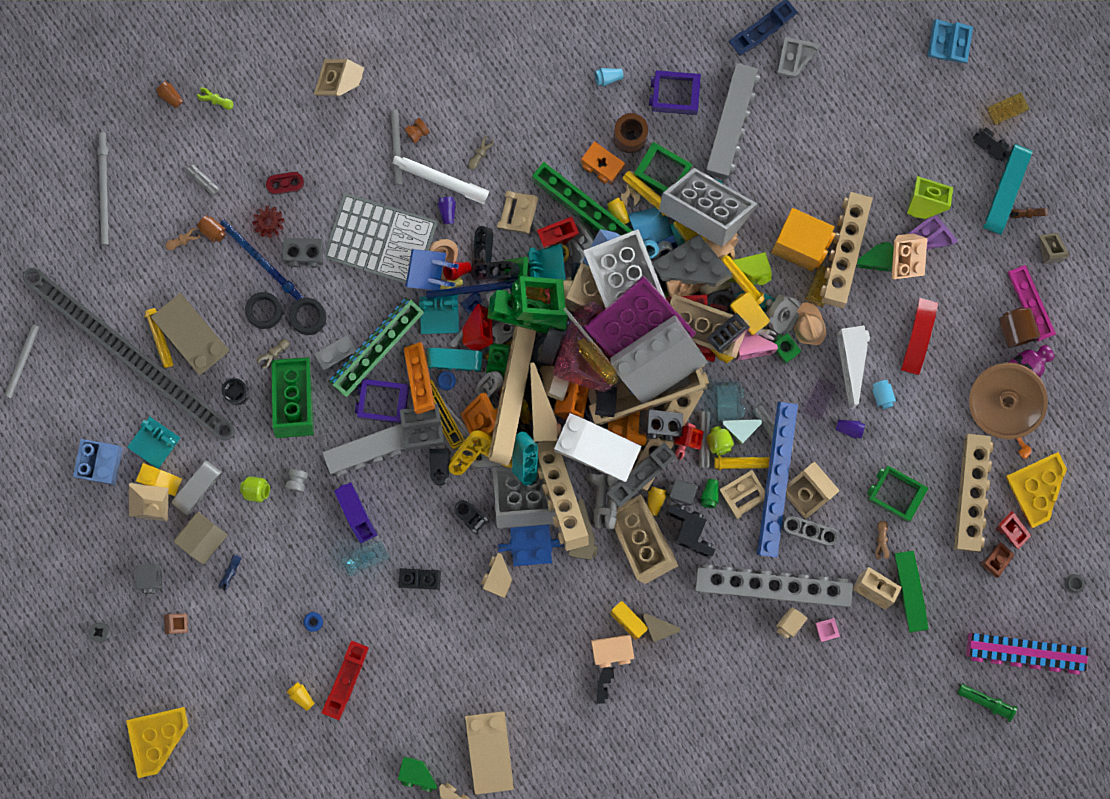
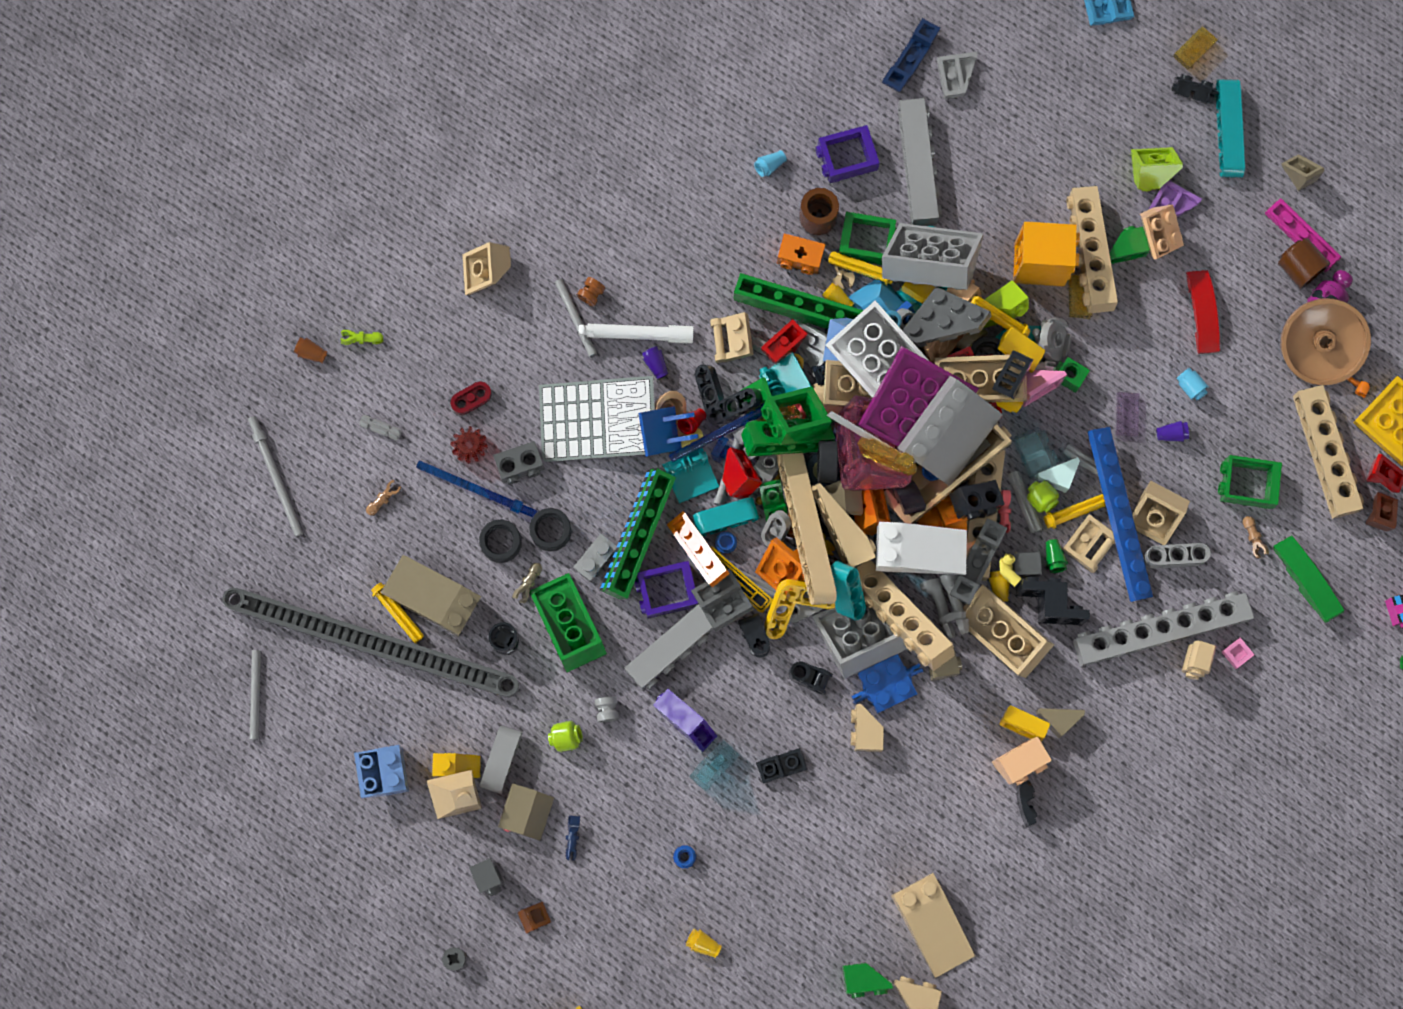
camera: 20 degrees left, 5 degrees down
(153, 442) = (434, 727): teal hinge -> none
(211, 229) = (410, 475): dark orange brick -> none
(345, 680) = (745, 907): red slope -> none
(474, 162) = (666, 291): dark tan piece -> none
(664, 489) = (1006, 569): none -> light yellow arm
(690, 438) = (1013, 504): red slope -> none
(810, 325) = (1086, 342): light nougat piece -> none
(853, 350) = (1144, 352): white slope -> none
(877, 588) = (1272, 588): tan brick -> none
(1029, 212) = (1262, 144): reddish brown piece -> none

